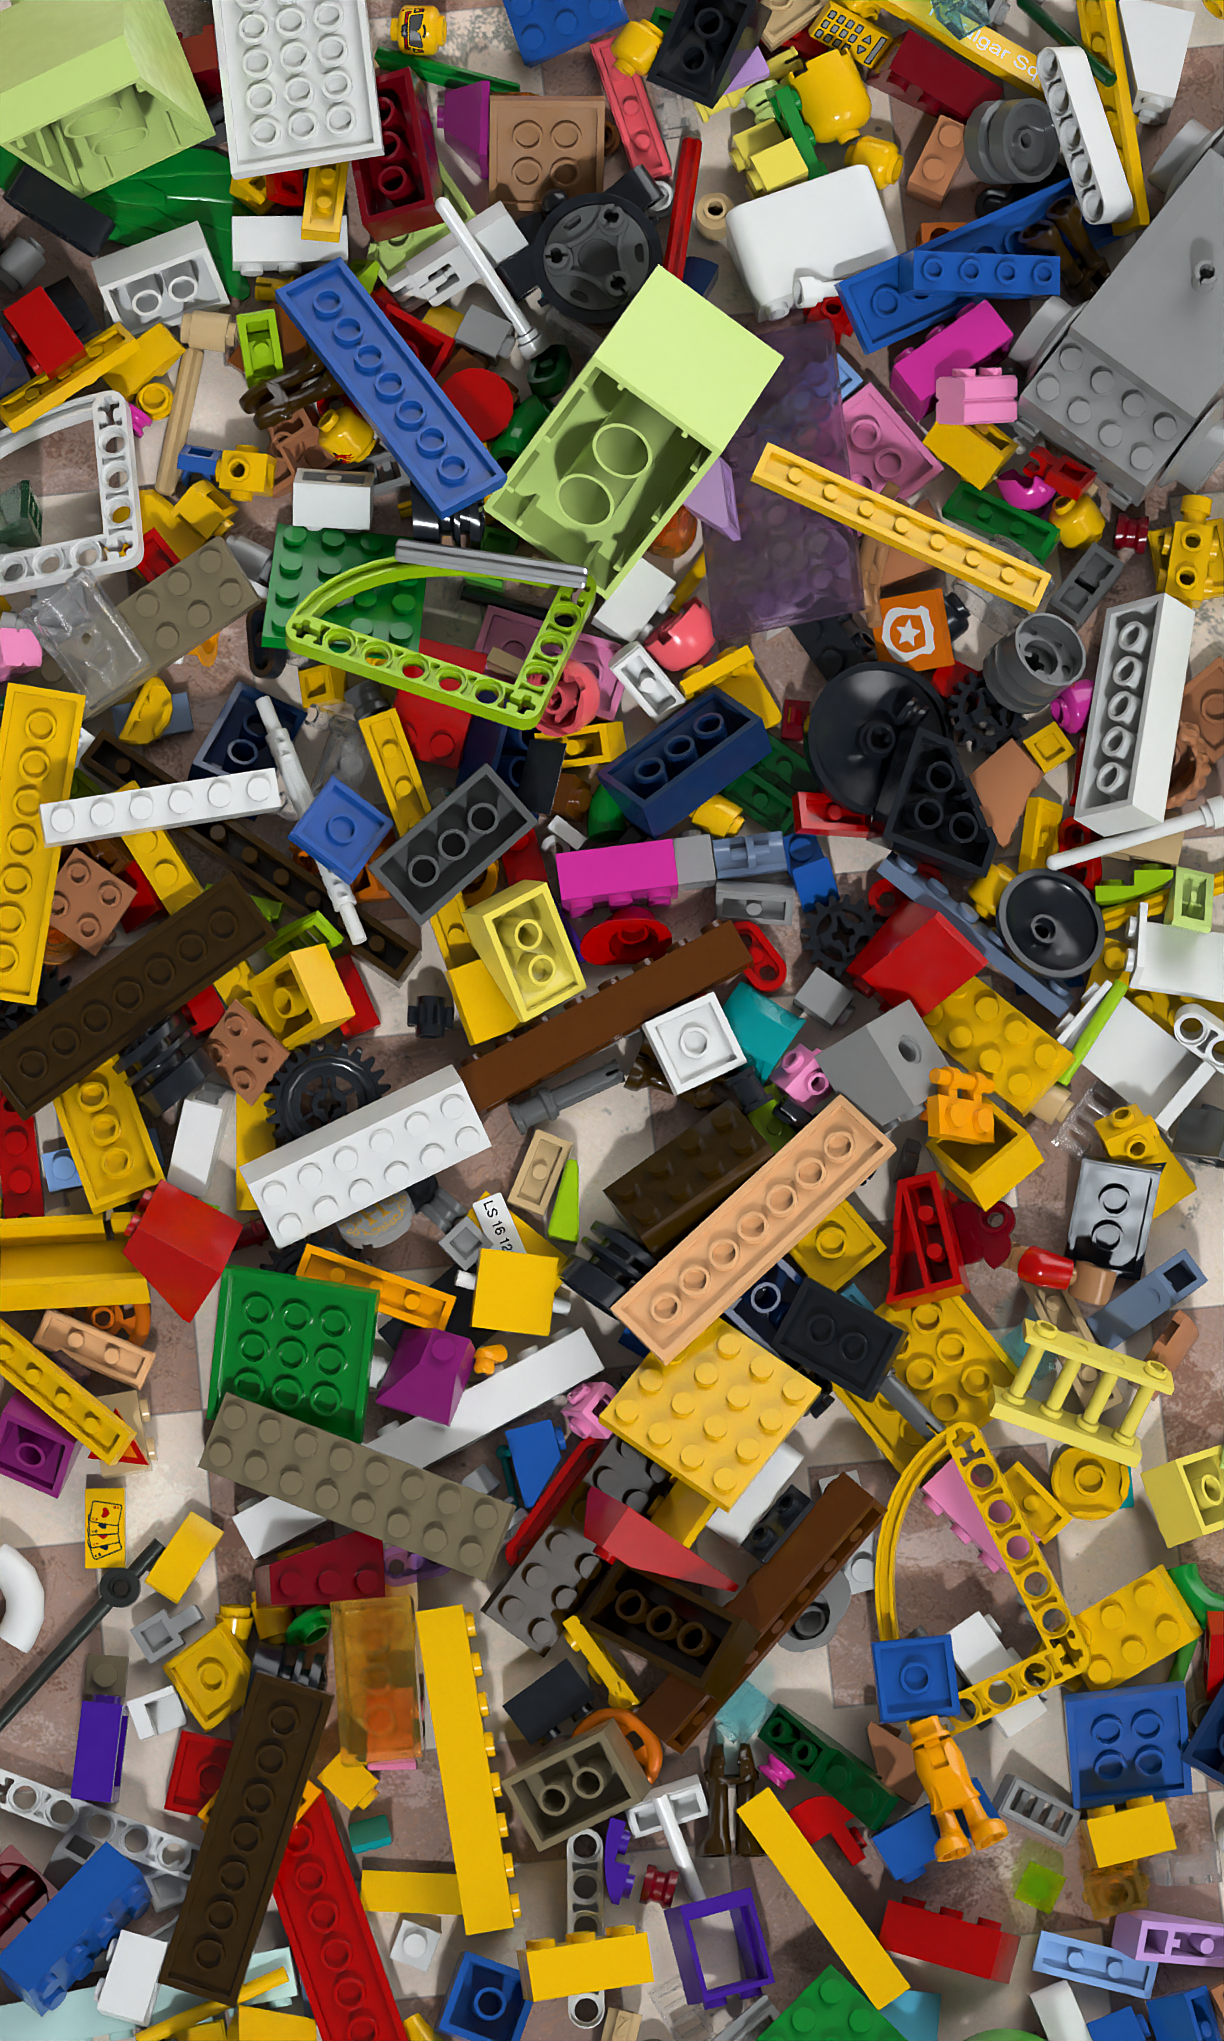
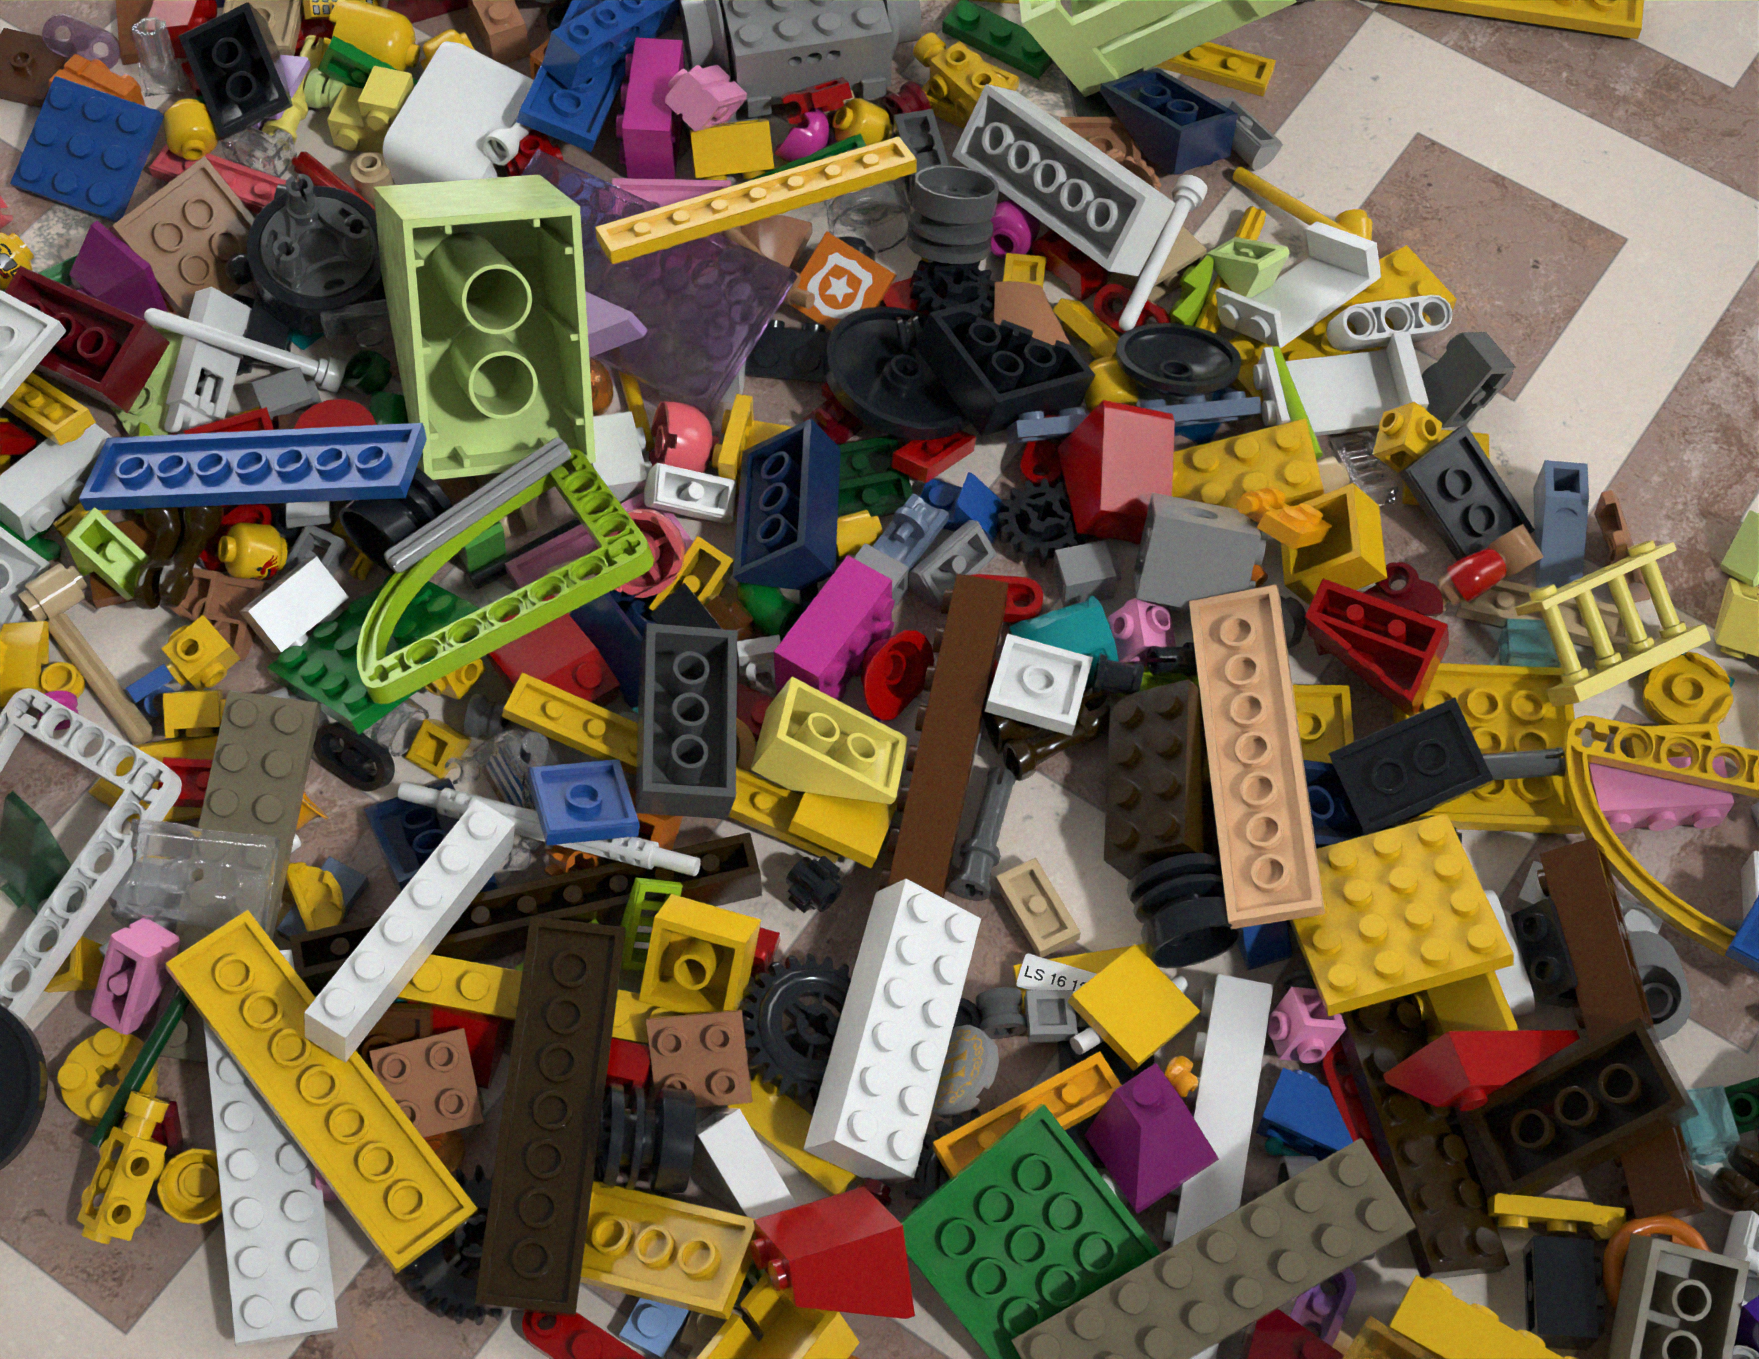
camera: 50 degrees left, 20 degrees down
(565, 1215) = (1091, 910): lime slope -> none

